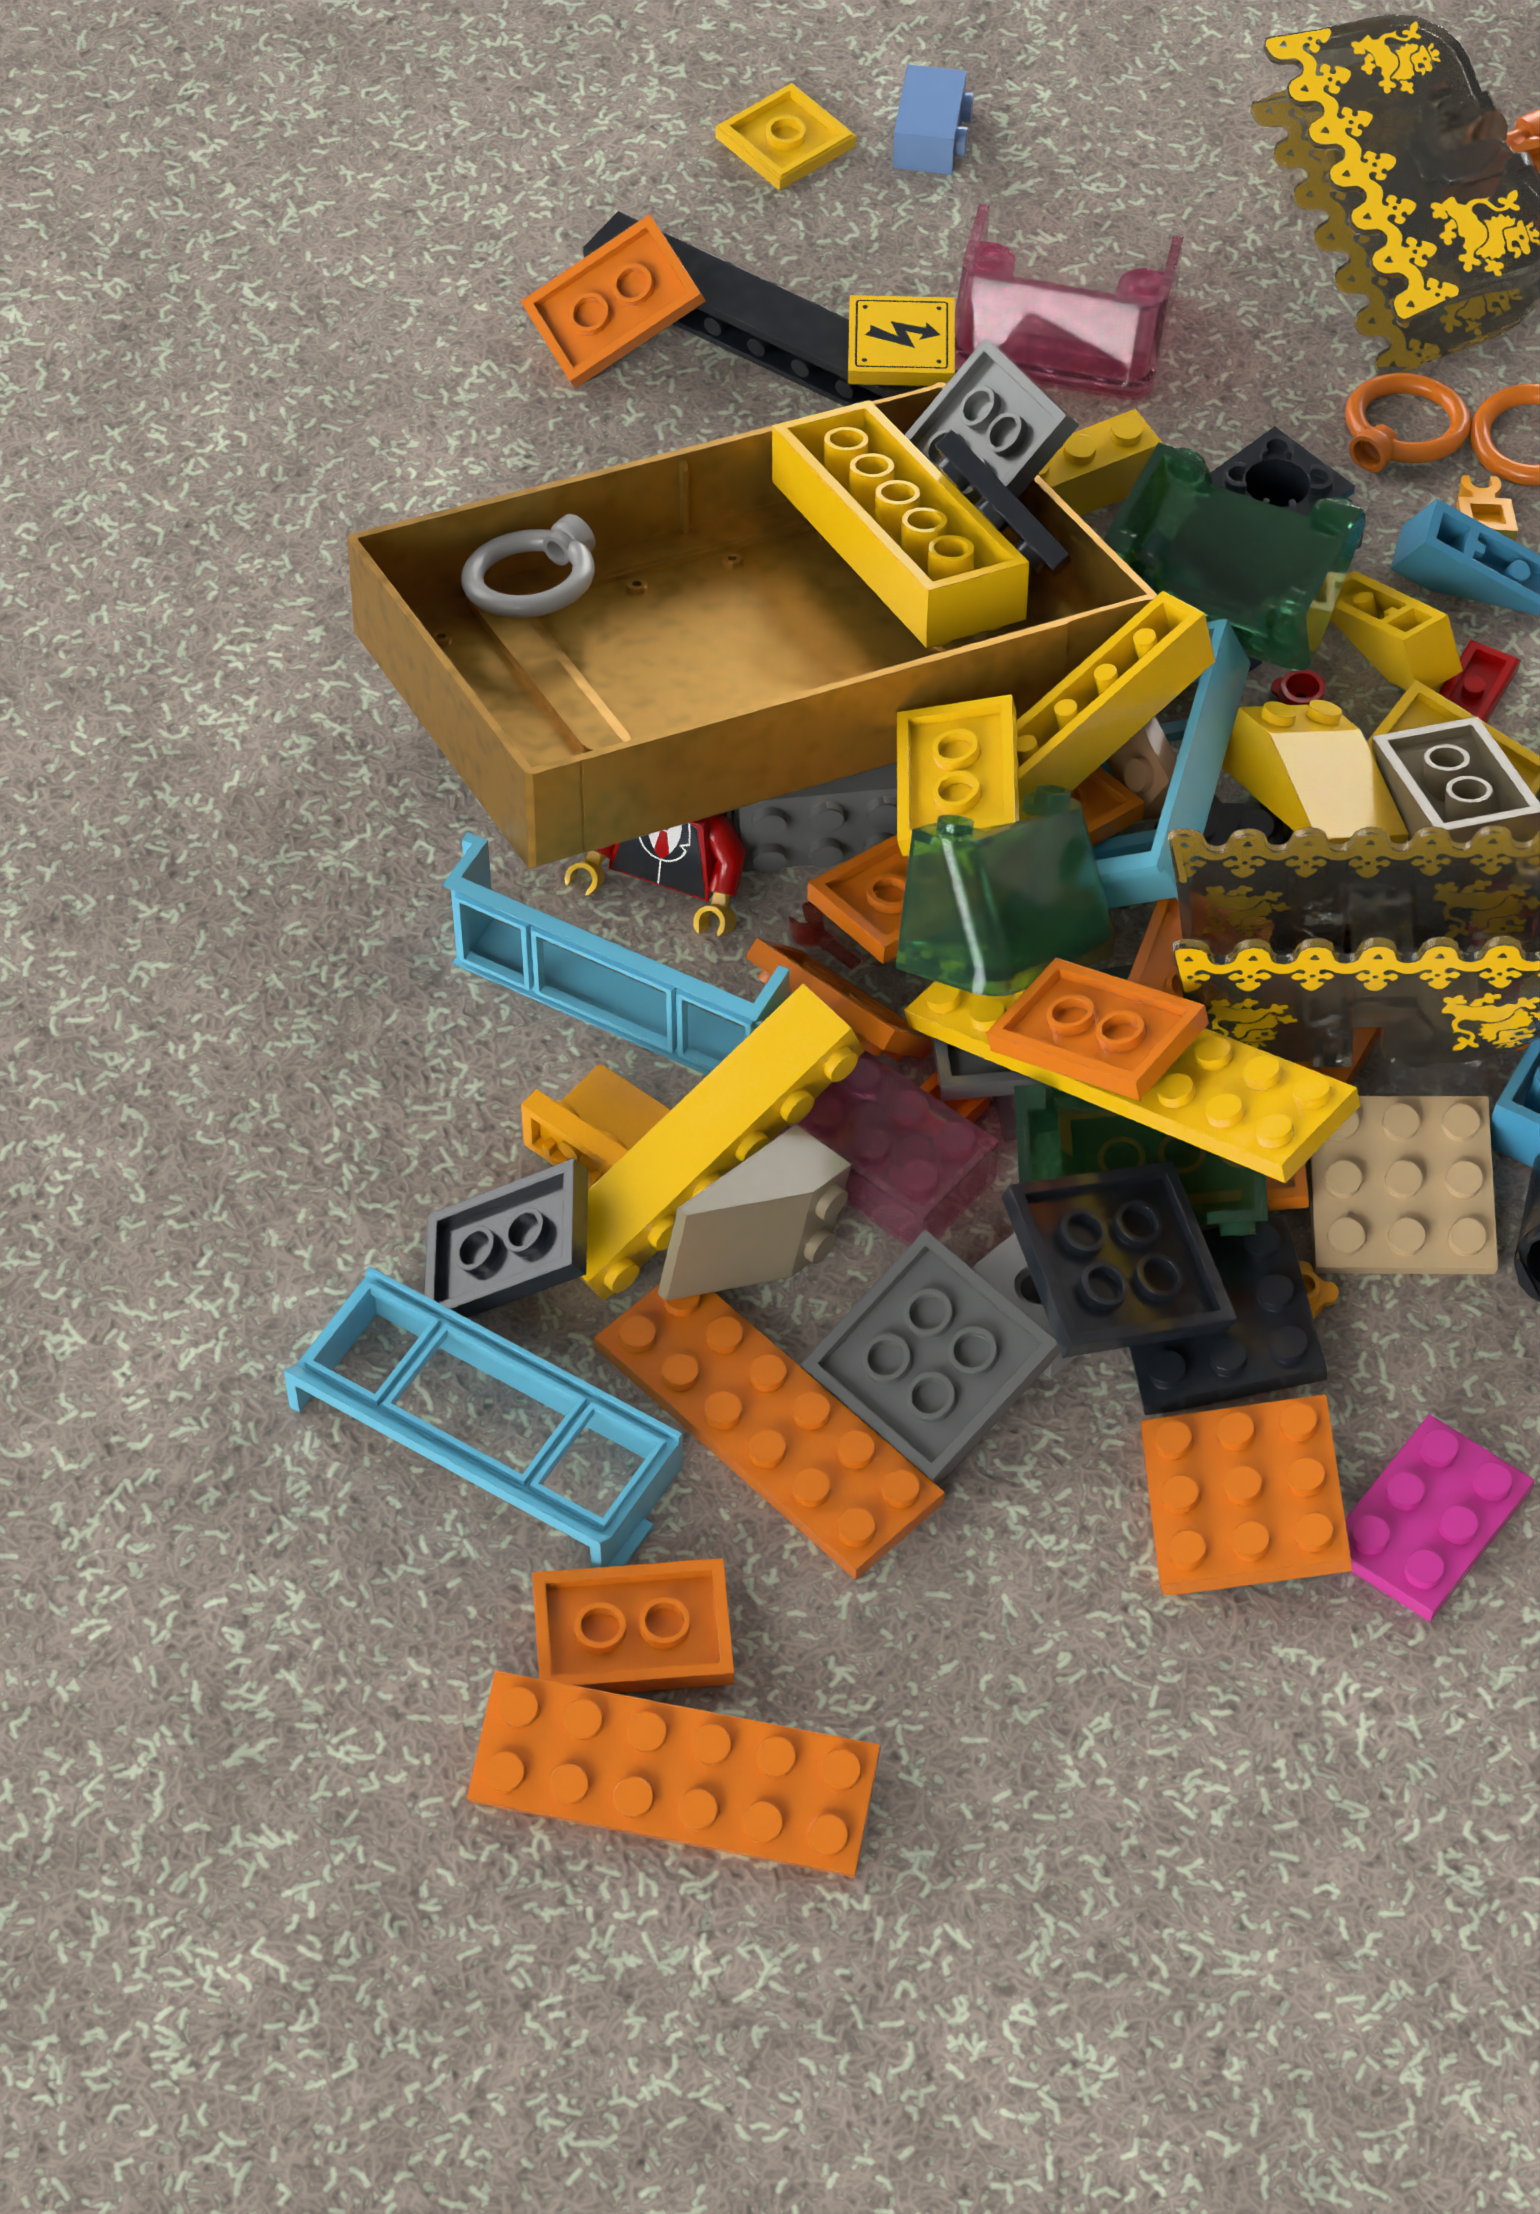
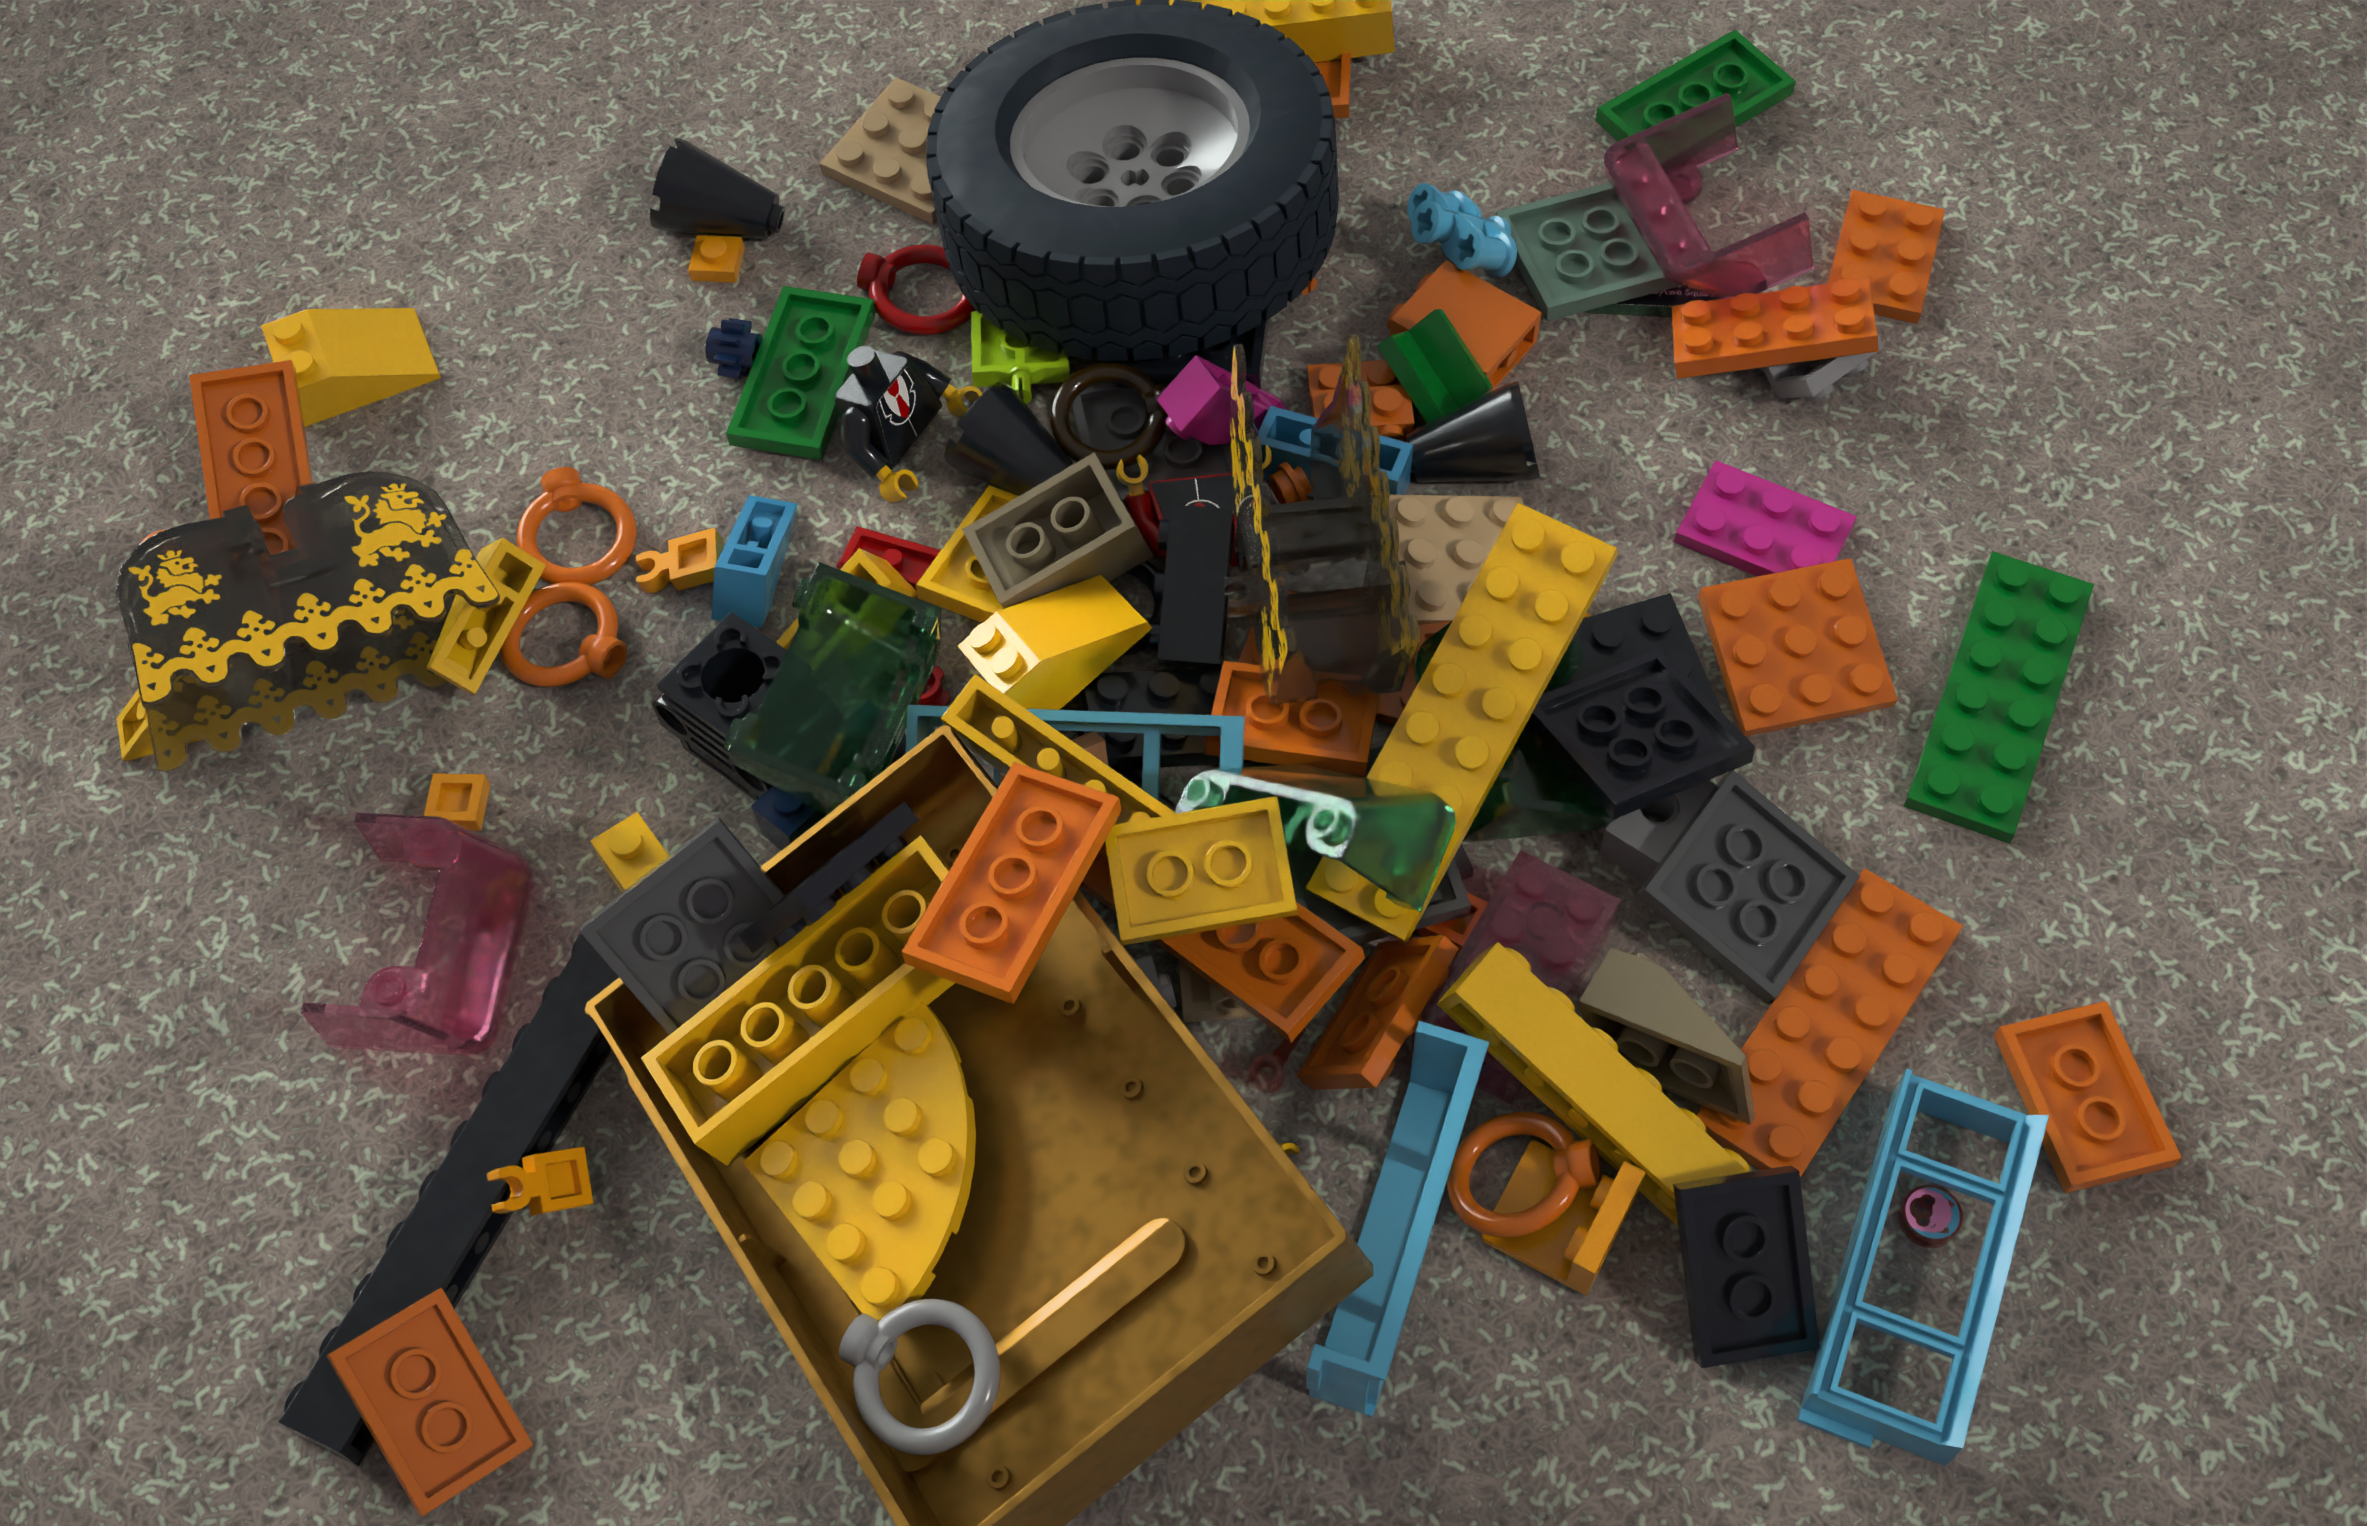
camera: 95 degrees left, 5 degrees up
(526, 1443) = (1930, 1216): none -> tile
(634, 1056) = (1574, 1165): none -> orange piece
(674, 1773) = (2216, 1042): orange plate -> none
(736, 563) = (879, 1164): none -> yellow plate
(785, 136) = (125, 1273): yellow tile -> none
(799, 387) = (546, 1182): none -> light orange plate
(901, 340) = (498, 1073): yellow tile -> none
(930, 119) = (119, 1110): medium blue brick -> none
(950, 601) = (1012, 882): none -> orange plate
(1097, 1028) = (1469, 723): orange plate -> none
(1162, 1707) = (1999, 697): none -> green plate
(1215, 337) = (459, 798): none -> light orange plate
(1420, 346) = (474, 634): none -> yellow slope

